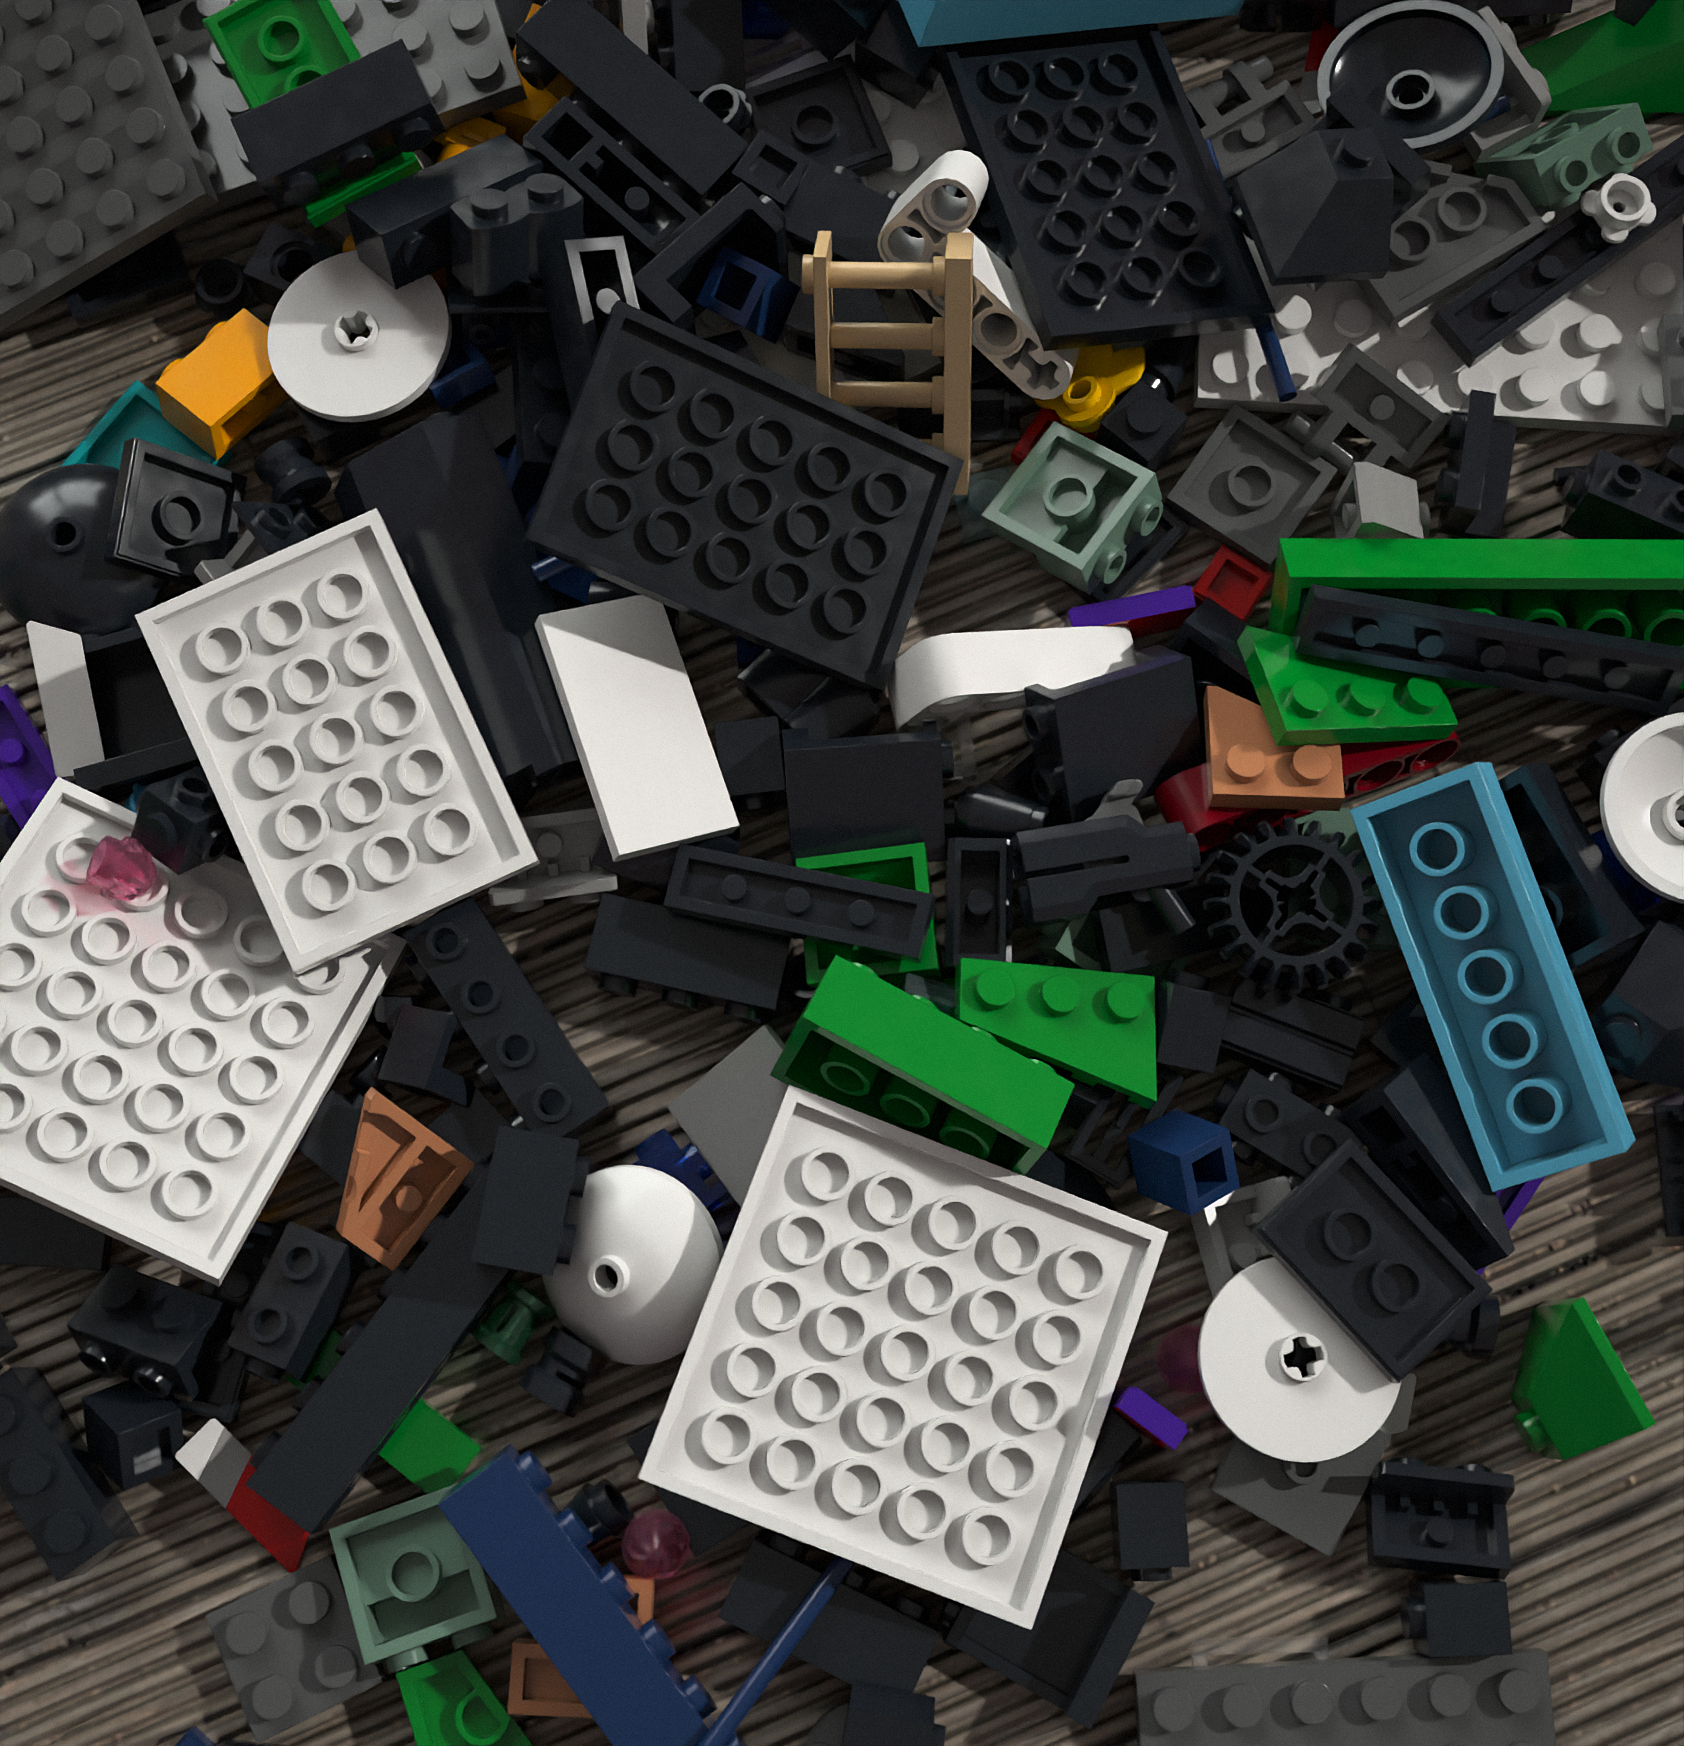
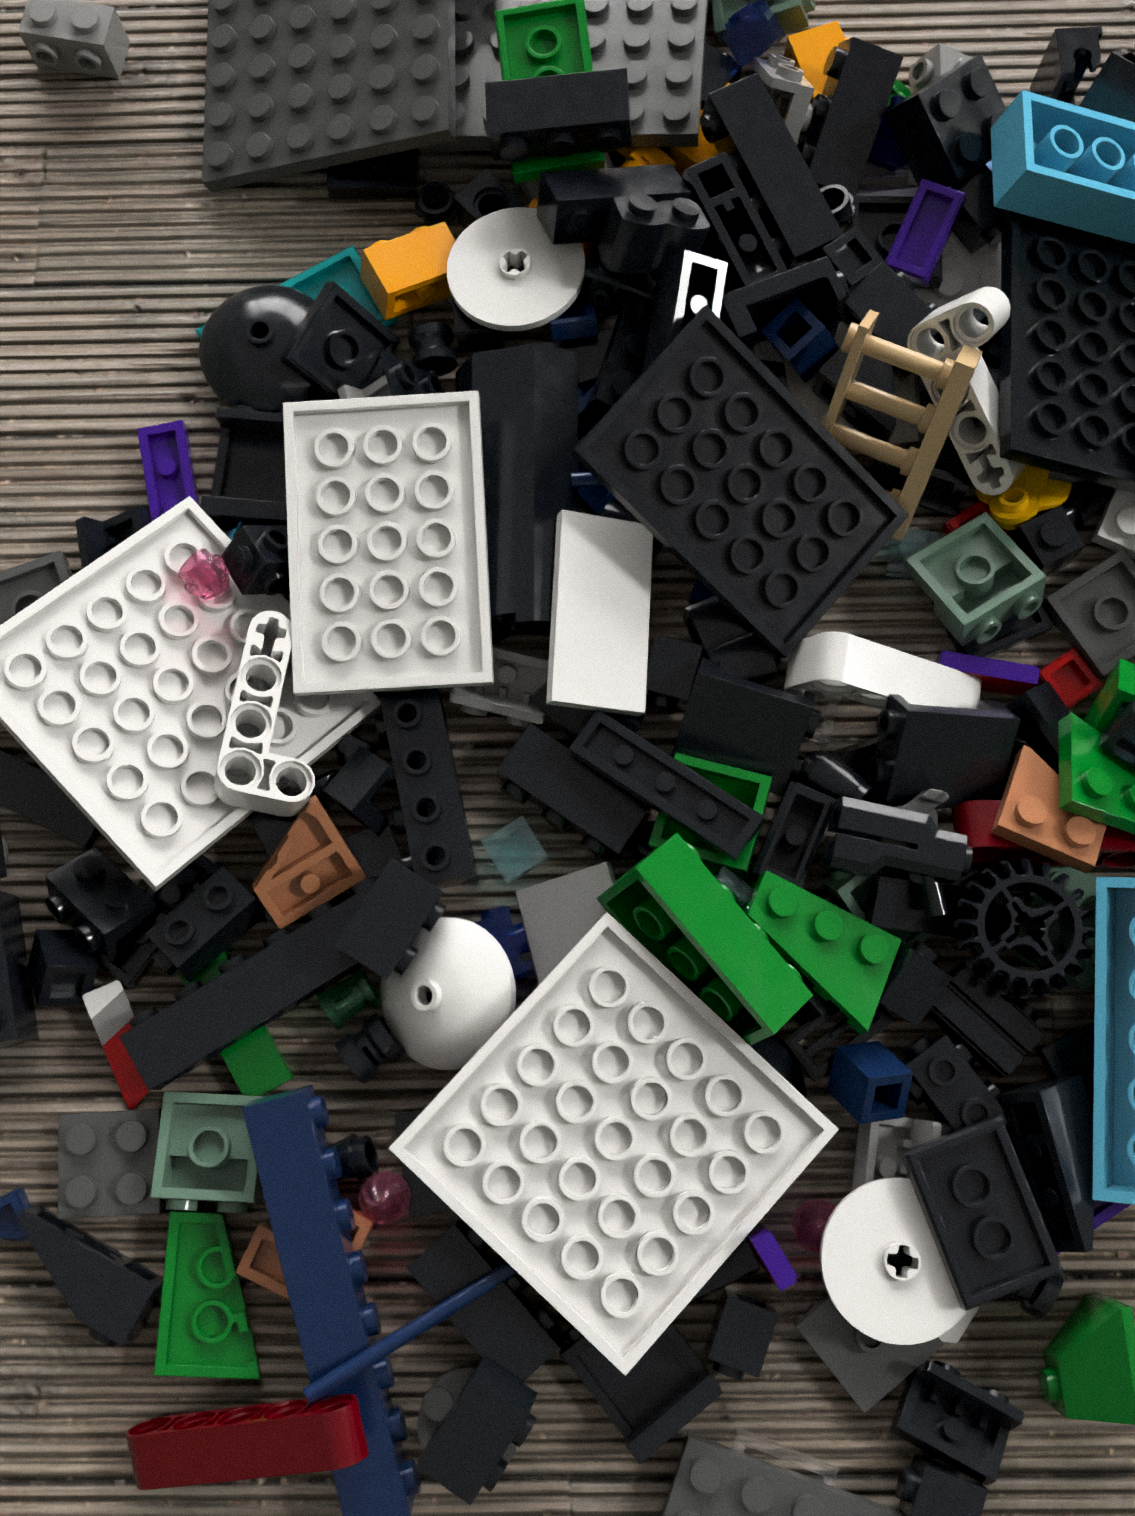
camera: 25 degrees right, 0 degrees up
(65, 698) = (216, 444): white sticker -> none
(263, 1010) = (261, 710): none -> white beam
(645, 1057) = (514, 850): none -> clear light blue plate
(847, 105) = (925, 231): none -> dark purple tile

